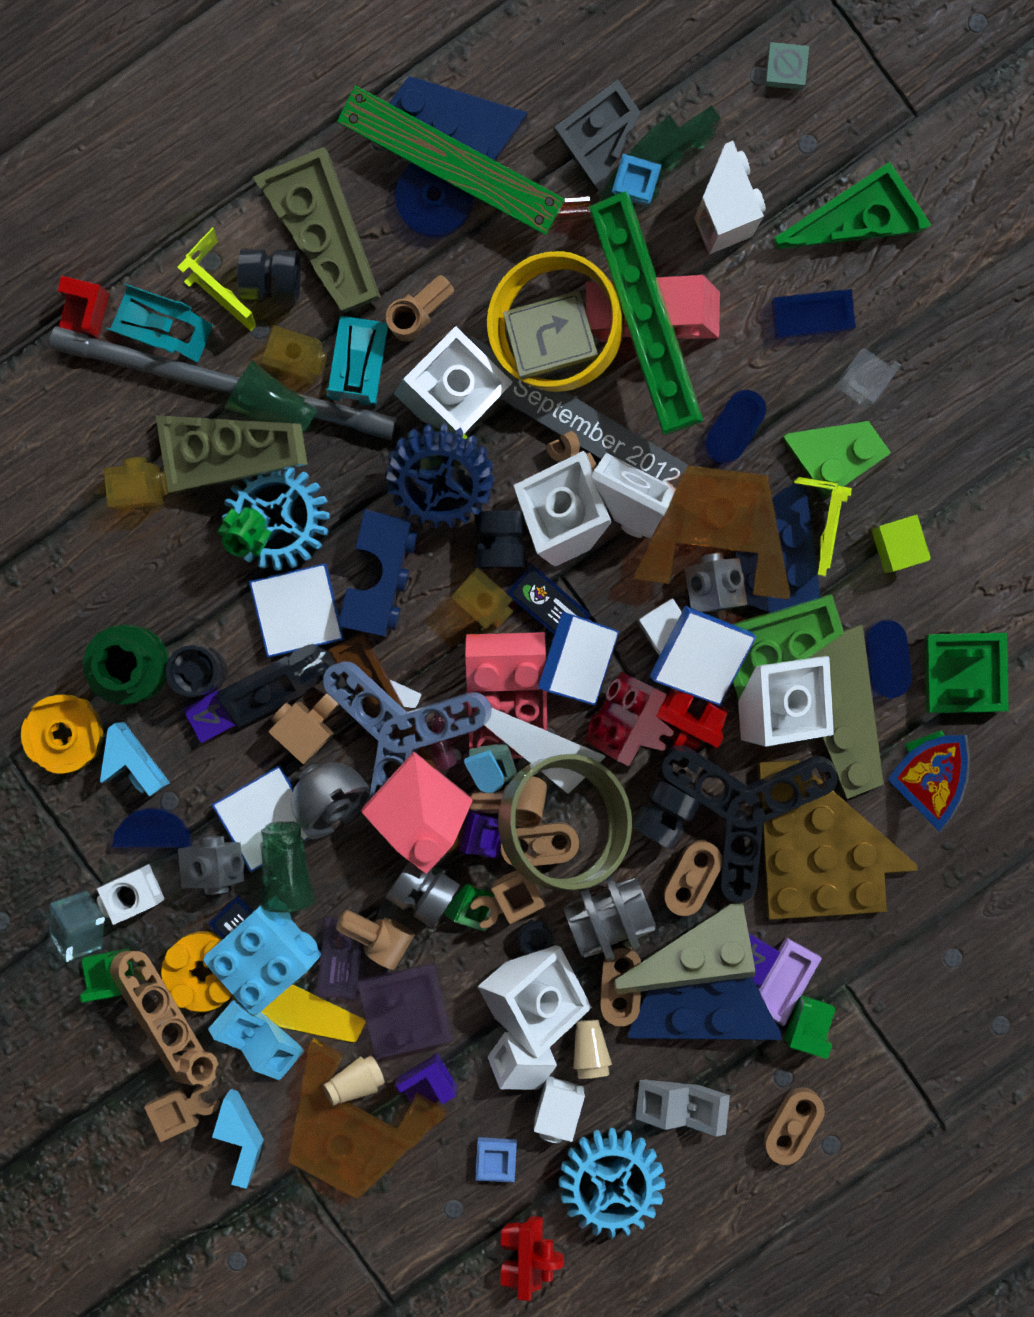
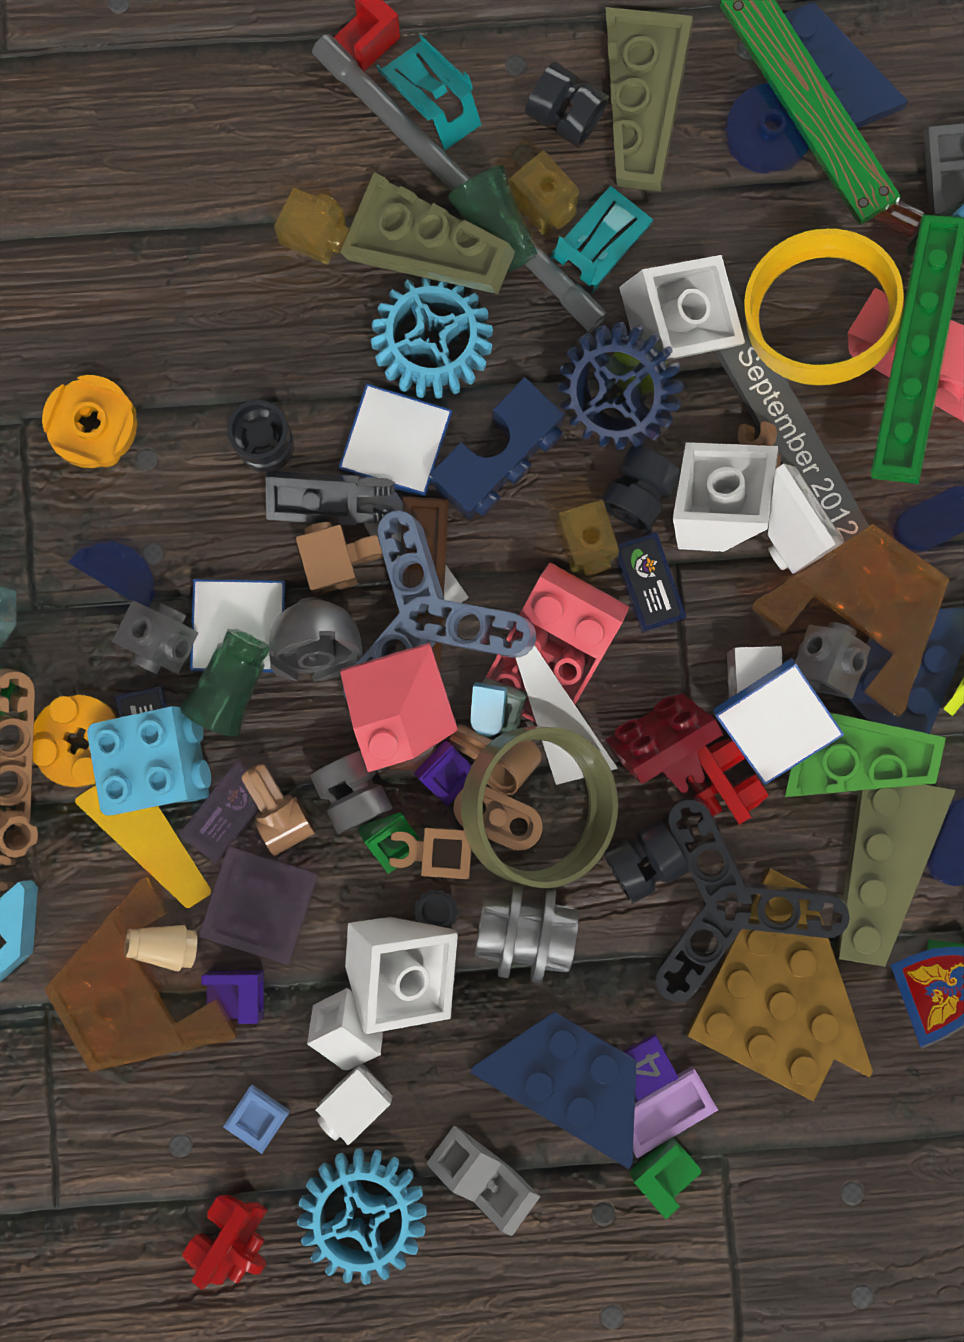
camera: 25 degrees right, 5 degrees down
(108, 649) = (182, 367): dark green piece -> none
(124, 752) = (139, 476): medium azure slope -> none
(144, 886) = (75, 621): white brick -> none
(208, 717) = (244, 493): dark purple tile -> none
(210, 285) = (505, 83): neon yellow piece -> none
(244, 532) = (394, 324): green gear -> none
(260, 1040) = (92, 842): medium azure slope -> none
(420, 306) = (693, 220): medium nougat axle -> none
(442, 750) = (458, 658): clear pink arm -> none
(550, 335) = (810, 316): olive piece -> none
(578, 658) = (650, 650): white tile -> none
(590, 1051) = (423, 1061): tan cone -> none
(608, 988) = (495, 1012): medium nougat plate -> none
(695, 878) = (634, 947): medium nougat plate -> none
(707, 954) = (606, 1031): olive wing -> none
(787, 702) = (837, 819): white slope -> none
(796, 1125) = (590, 1274): medium nougat plate -> none

